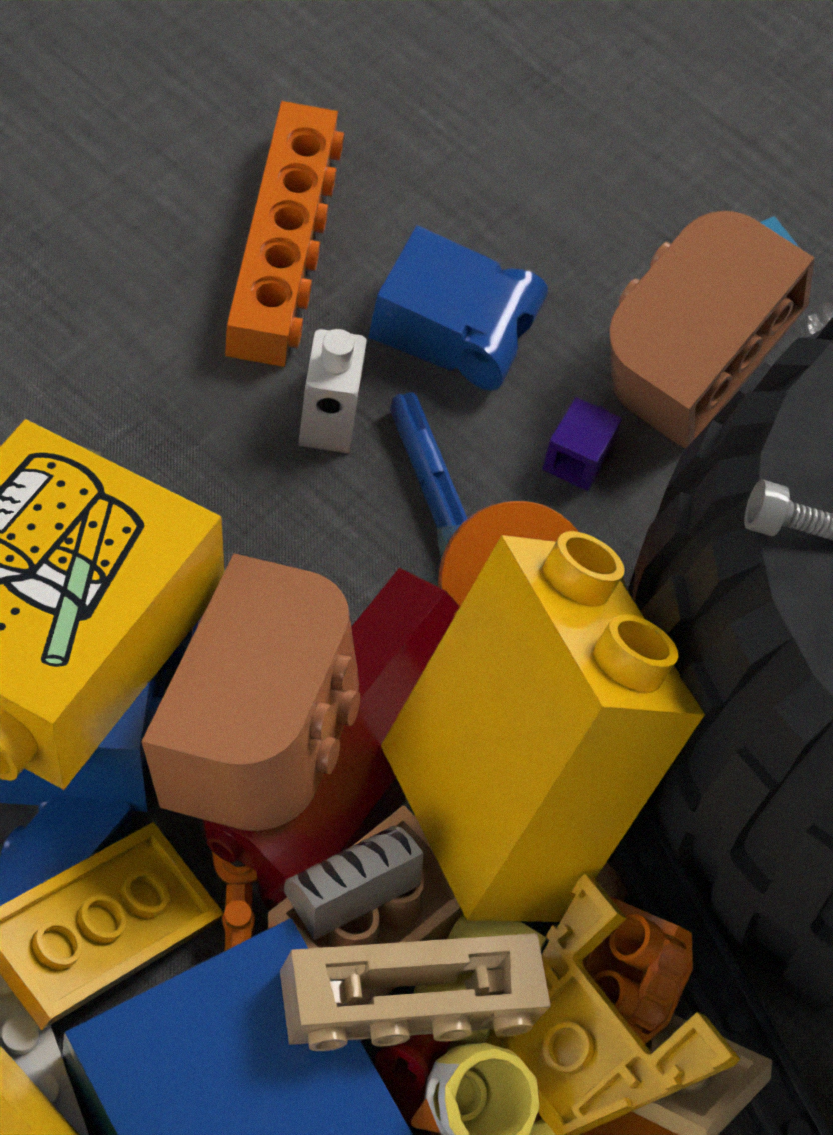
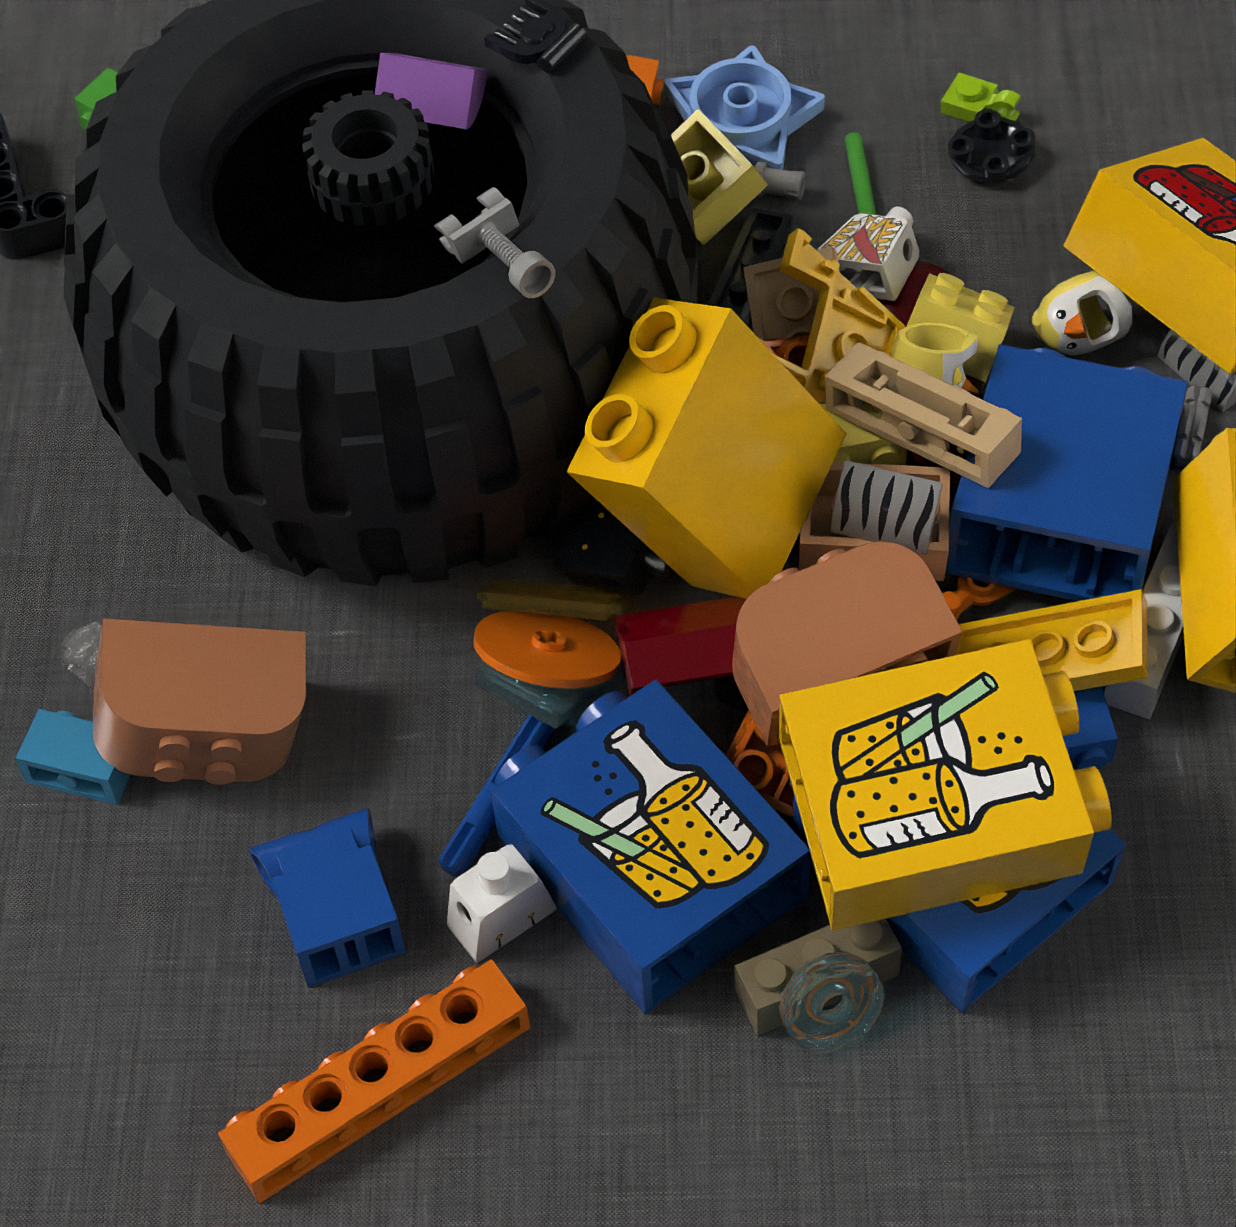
camera: 120 degrees left, 0 degrees up
(290, 471) = (650, 842): none -> blue brick
(582, 443) = (367, 726): dark purple brick -> none

